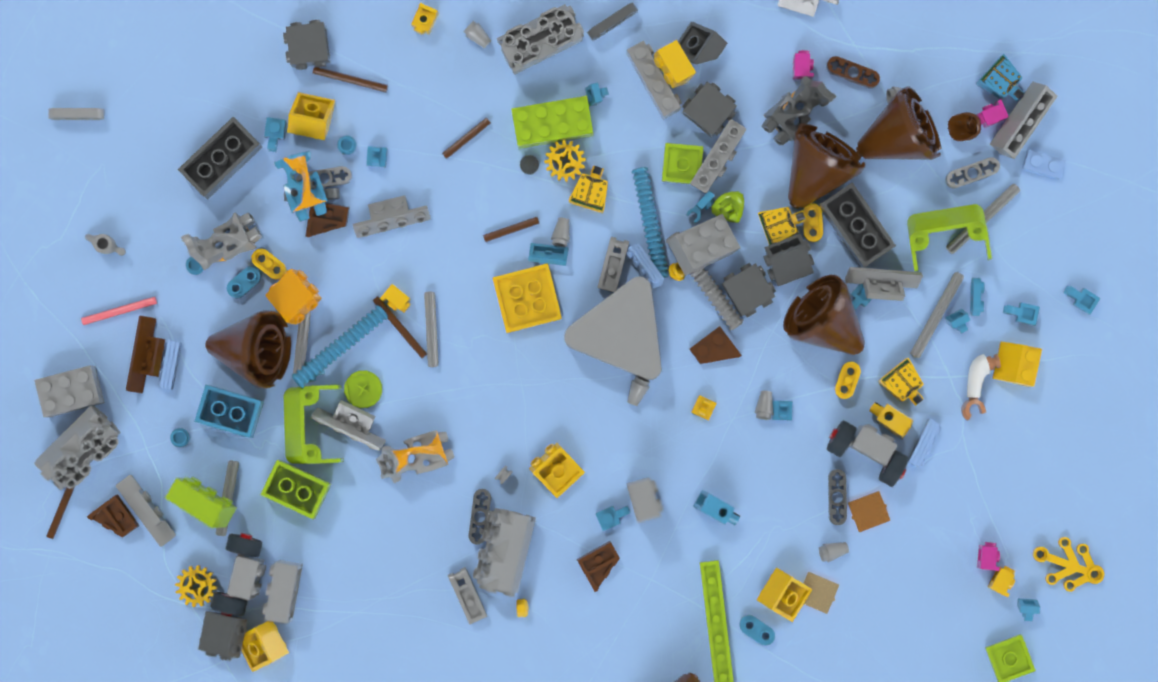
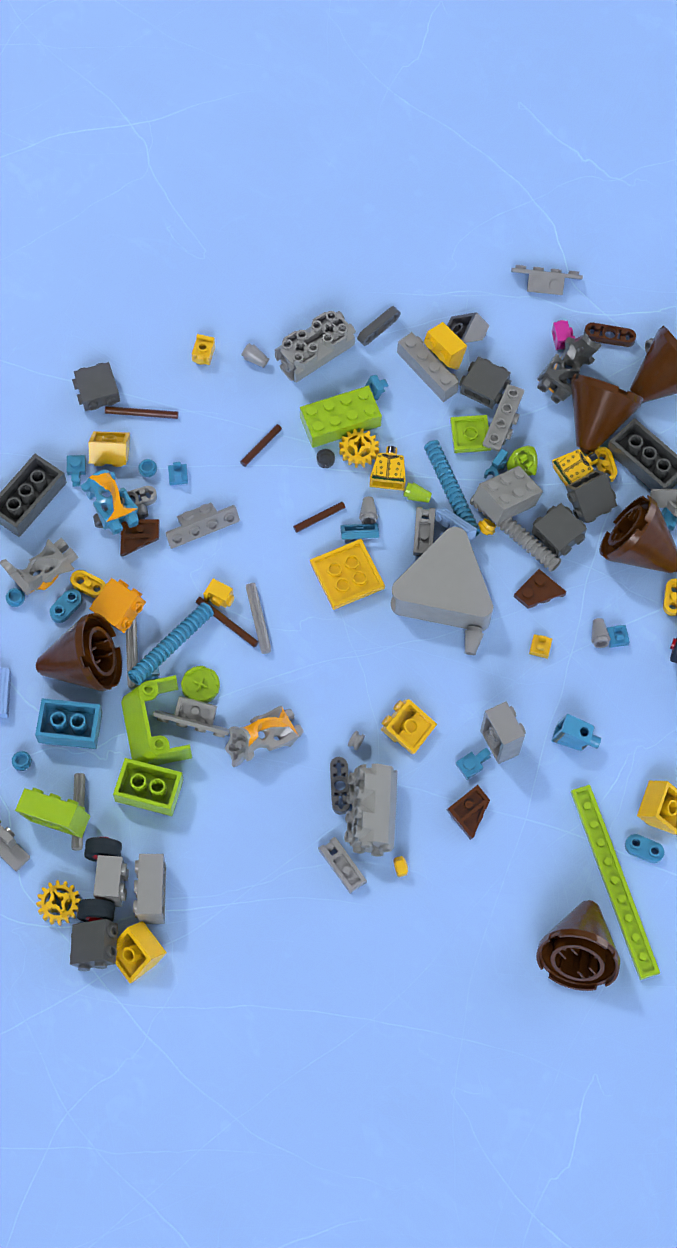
camera: 15 degrees left, 20 degrees down
(614, 221) = (417, 493): none -> lime cone

